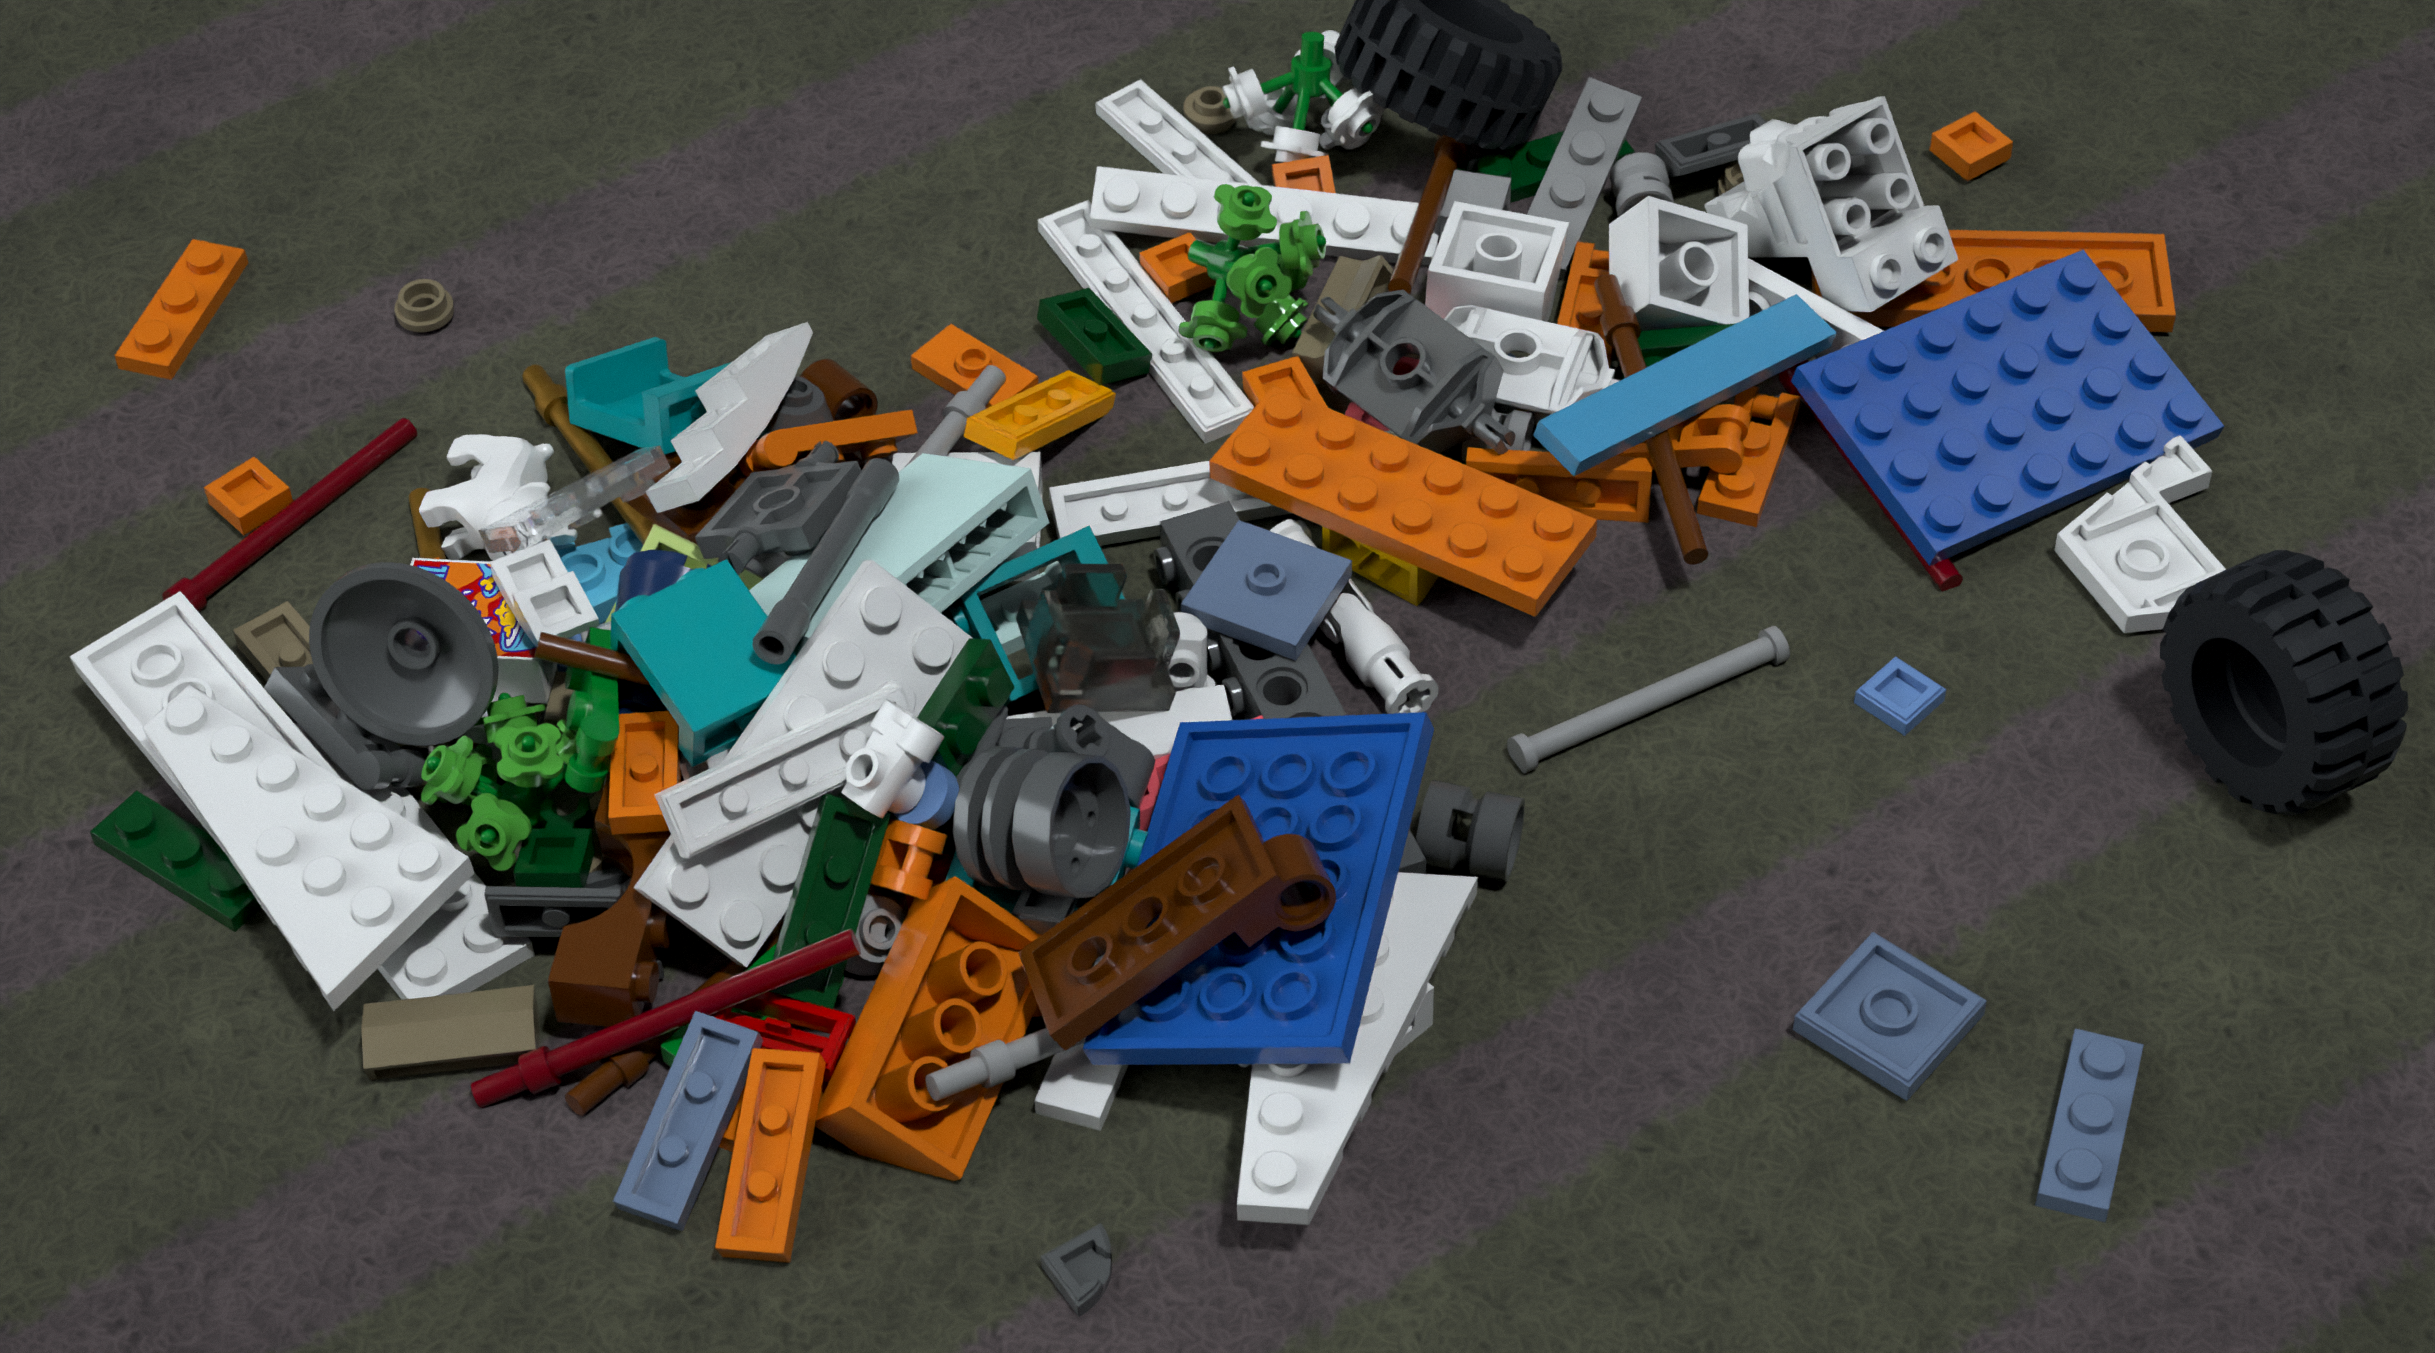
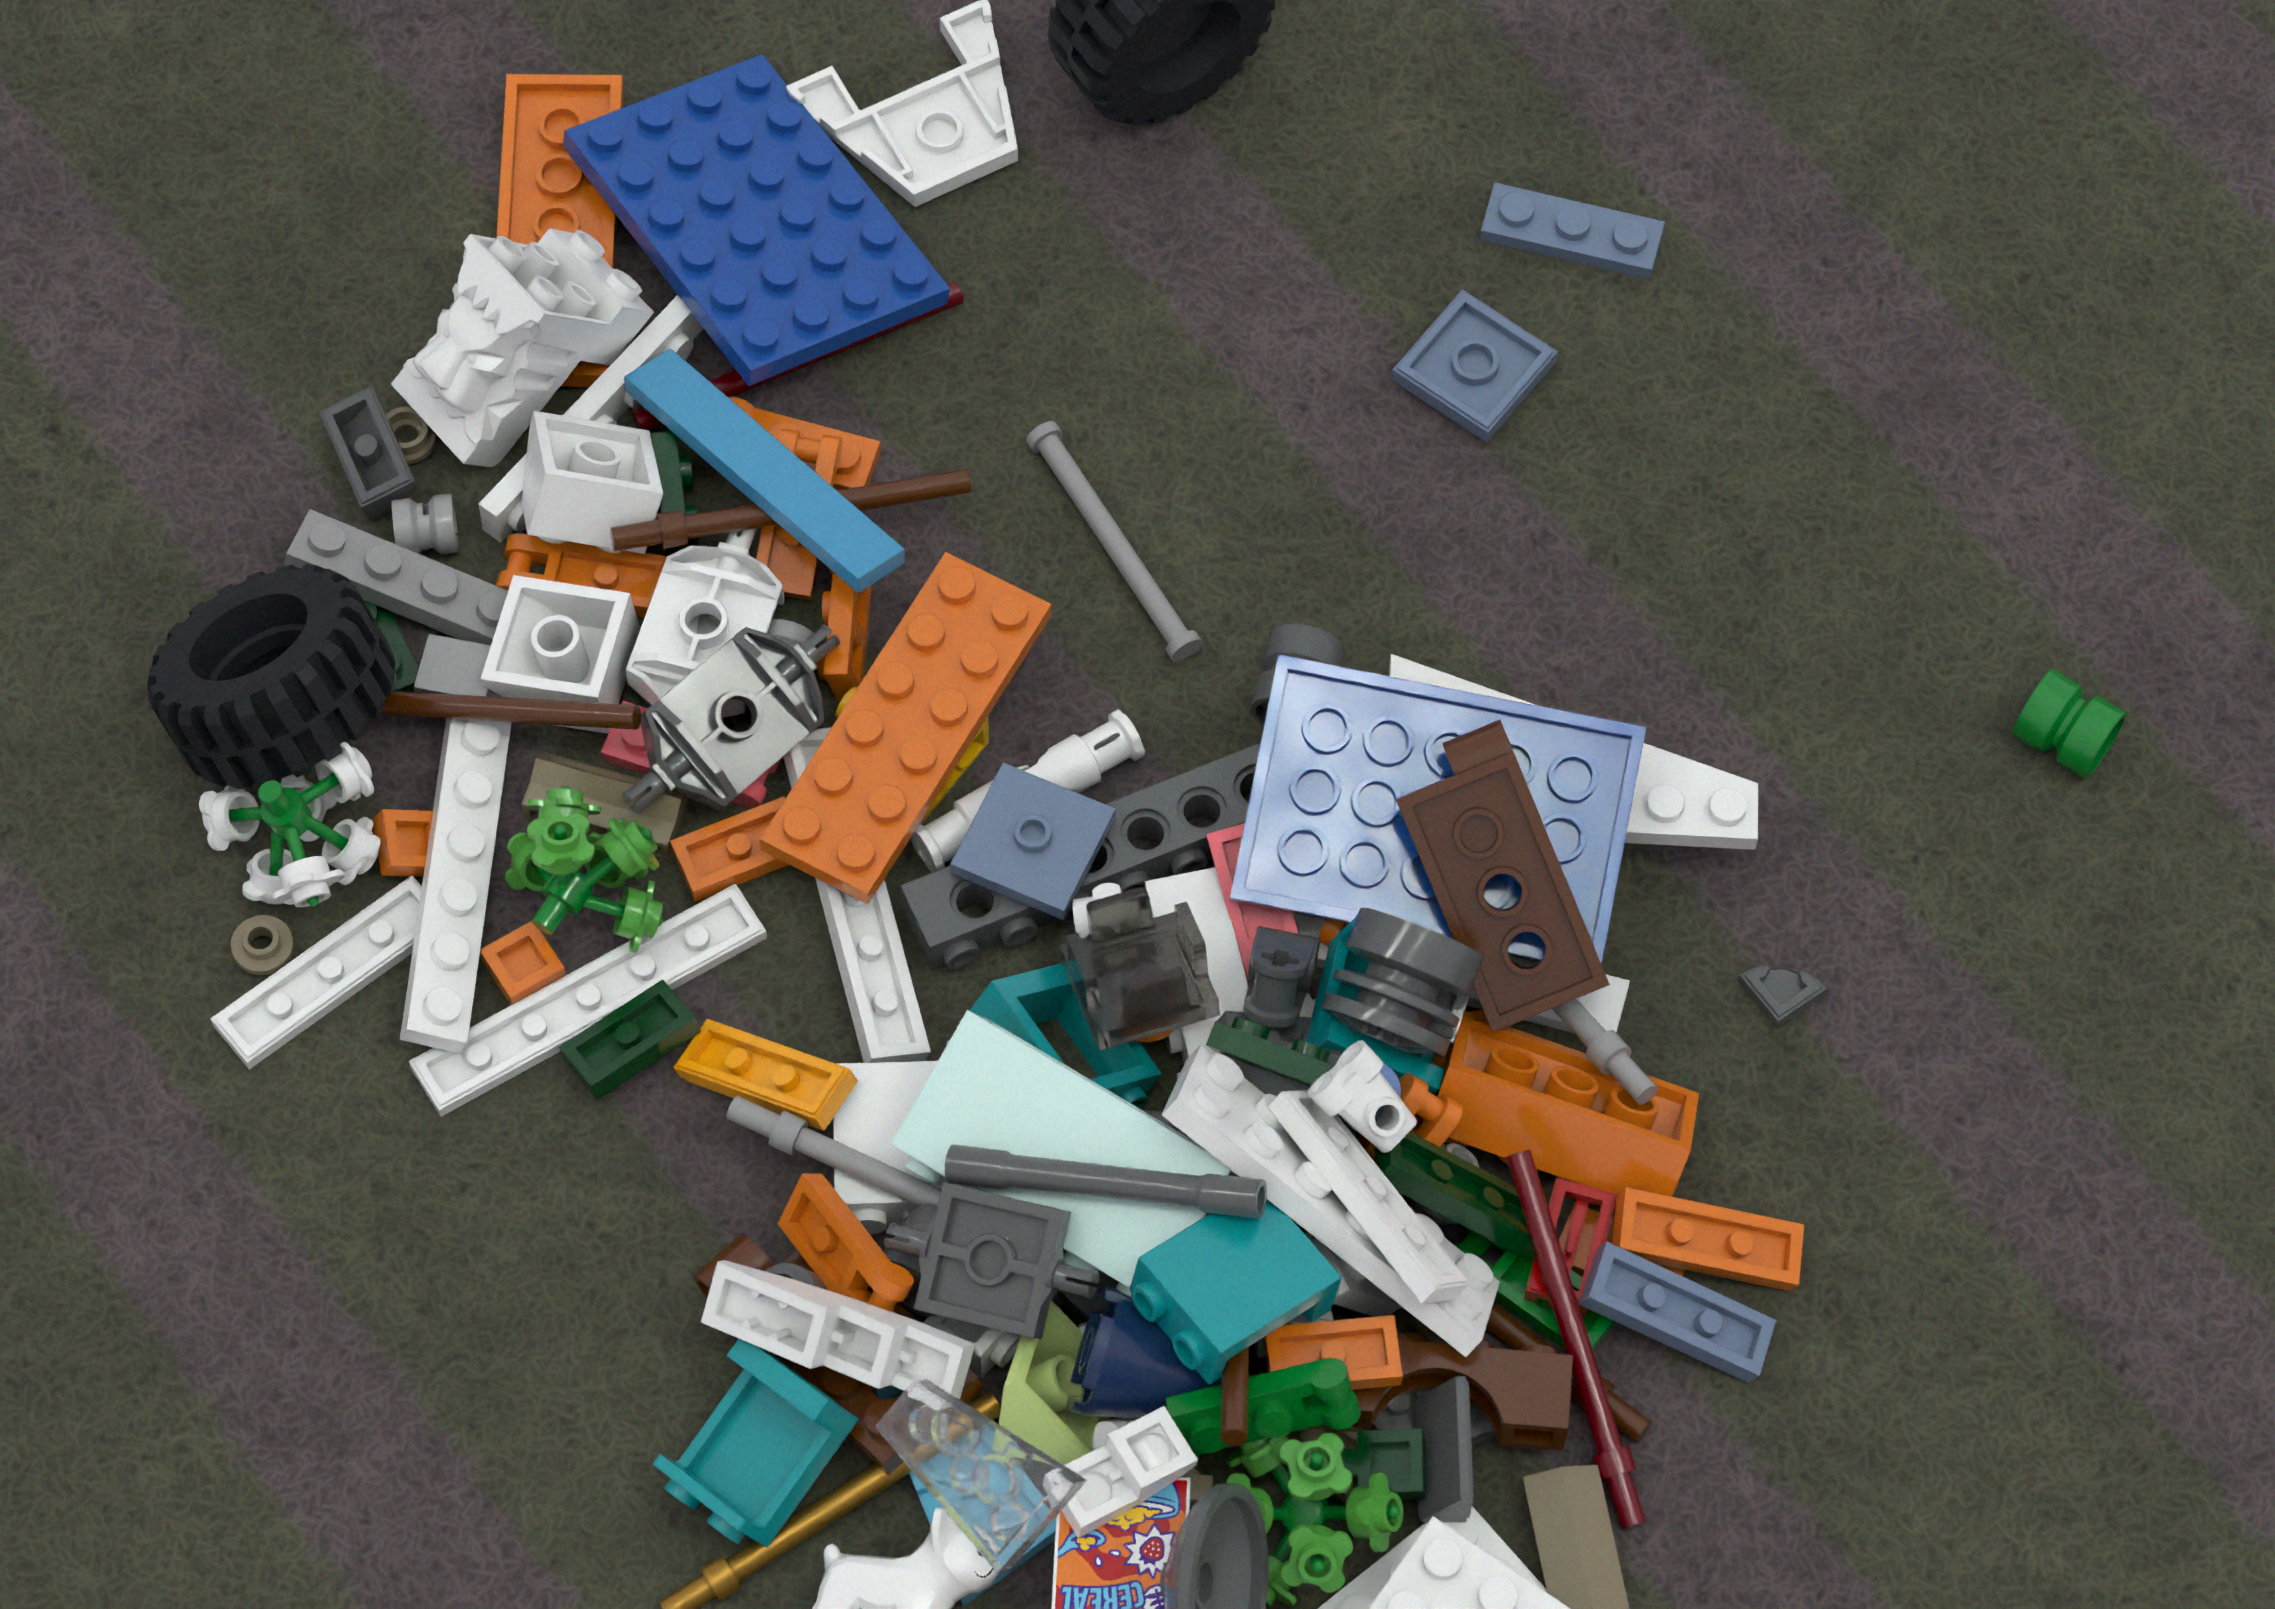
camera: 95 degrees left, 15 degrees up
(957, 359) = (669, 1160): orange plate -> none
(1900, 696) = (1100, 340): medium blue tile -> none
(1971, 146) = (358, 231): orange plate -> none

